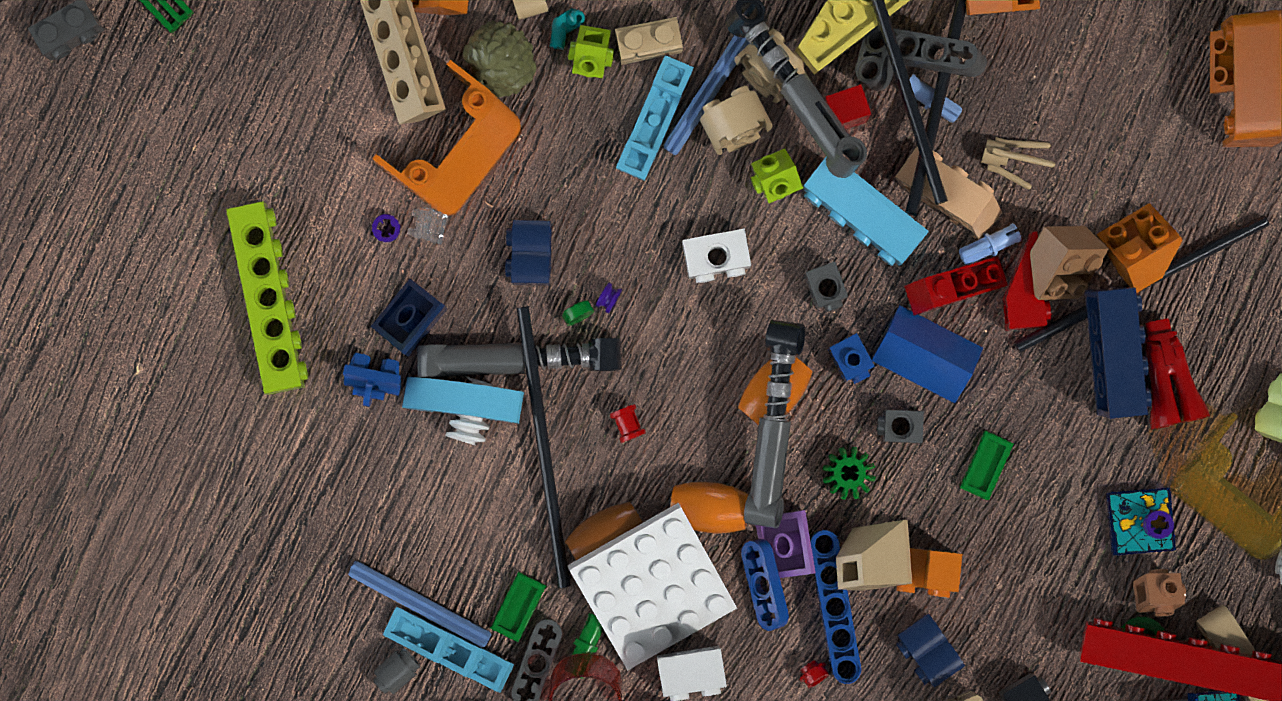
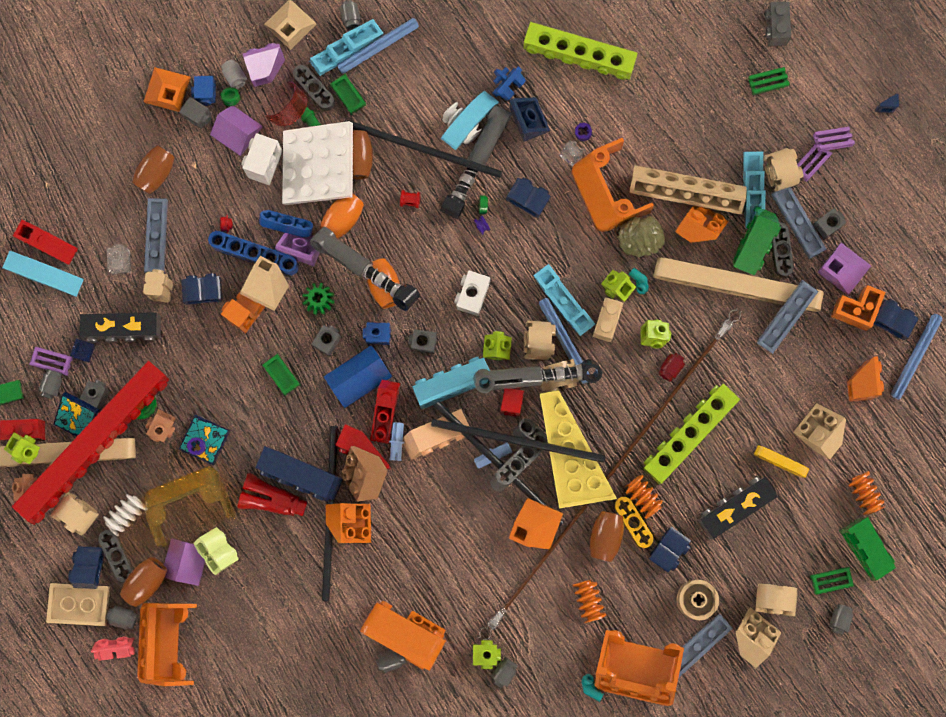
camera: 125 degrees right, 5 degrees down
(998, 152) = (442, 473): tan plant -> none

